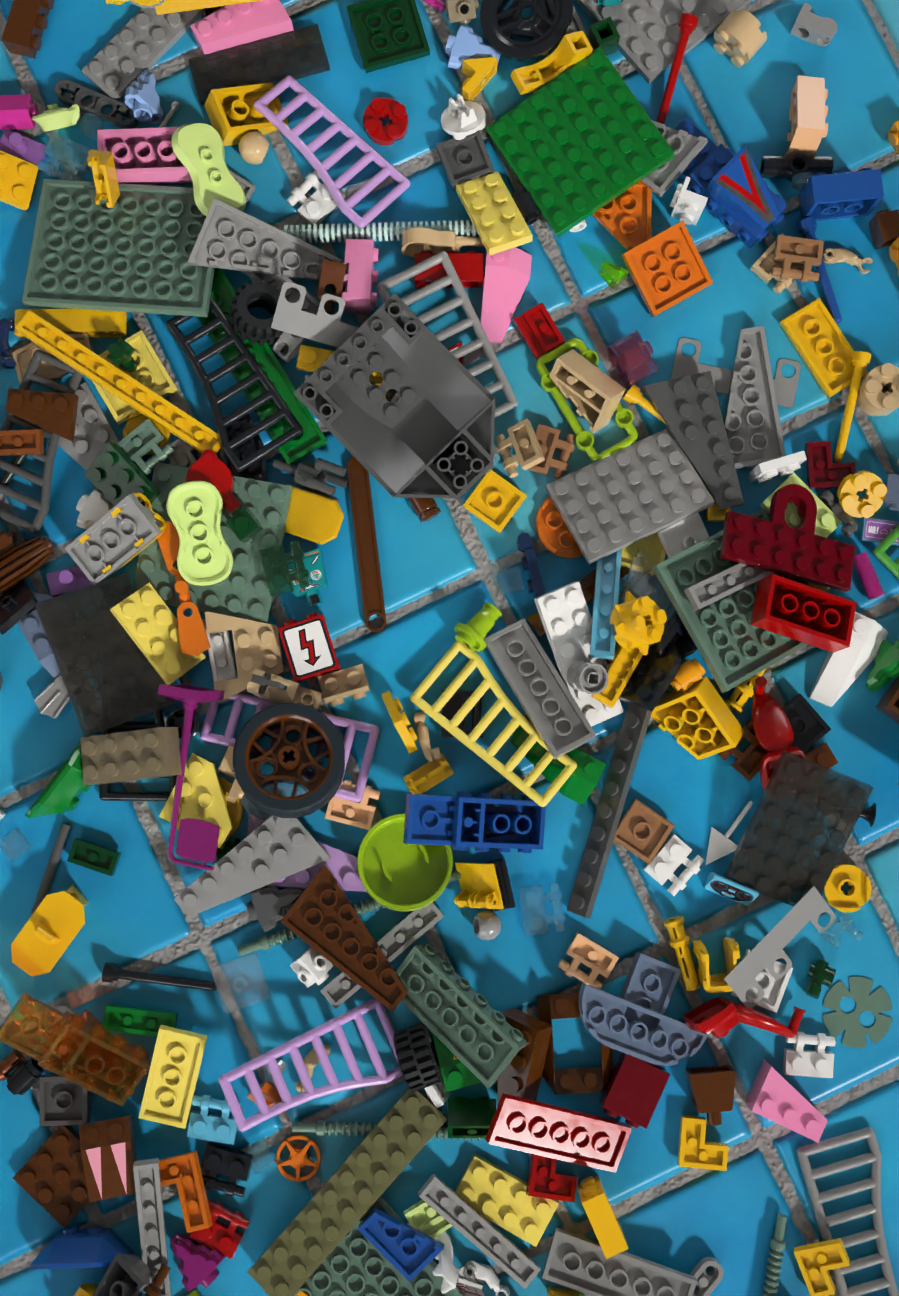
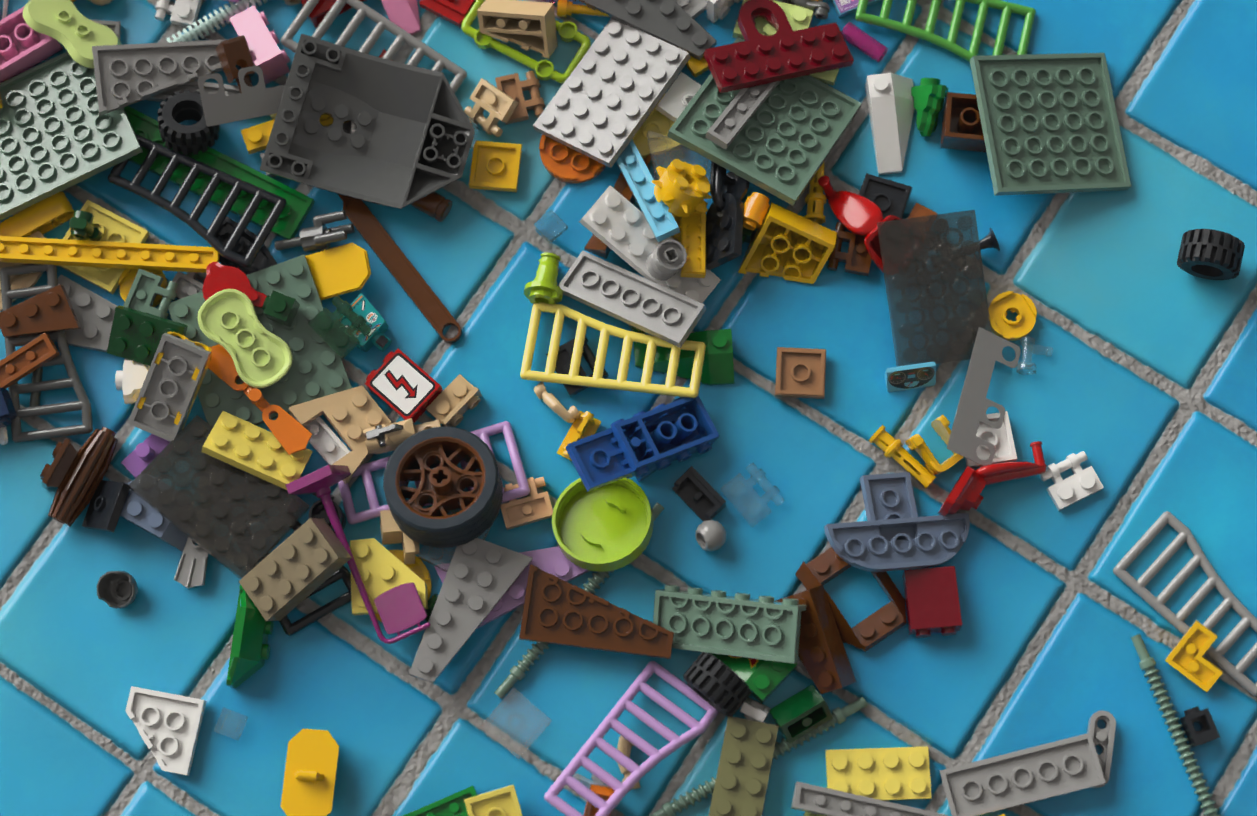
camera: 25 degrees left, 10 degrees down
(52, 865) = (276, 721): dark grey bar -> none
(94, 856) = (312, 689): dark green plate -> none
(113, 973) = (392, 784): black piece -> none
(271, 904) = (502, 634): dark grey rock -> none
(288, 346) = (230, 136): light grey leg -> none
(311, 967) = (573, 665): white brick -> none
(391, 944) = (635, 601): light grey plate -> none
(400, 721) = (524, 399): yellow plate -> none
(478, 886) = (682, 503): yellow hinge -> none
(530, 563) = (559, 200): dark blue hinge -> none
(548, 1184) = (900, 731): red plate -> none
(558, 1133) = (885, 674): plate -> none
(590, 954) = (820, 507): light nougat plate -> none
(602, 1216) = (970, 727): yellow brick -> none
(609, 811) = (759, 370): dark grey plate -> none
(668, 860) = (839, 386): white plate -> none
(695, 1151) = (1020, 624): yellow plate -> none
(712, 1090) = (1002, 562): reddish brown torso -> none
(719, 844) = (878, 345): white piece -> none
(781, 1103) = (1074, 533): bright pink wedge -> none
(803, 613) = (823, 100): red brick -> none
(820, 974) = (1034, 404): dark green plate -> none
(840, 1021) = (1101, 402): sand green piece -> none

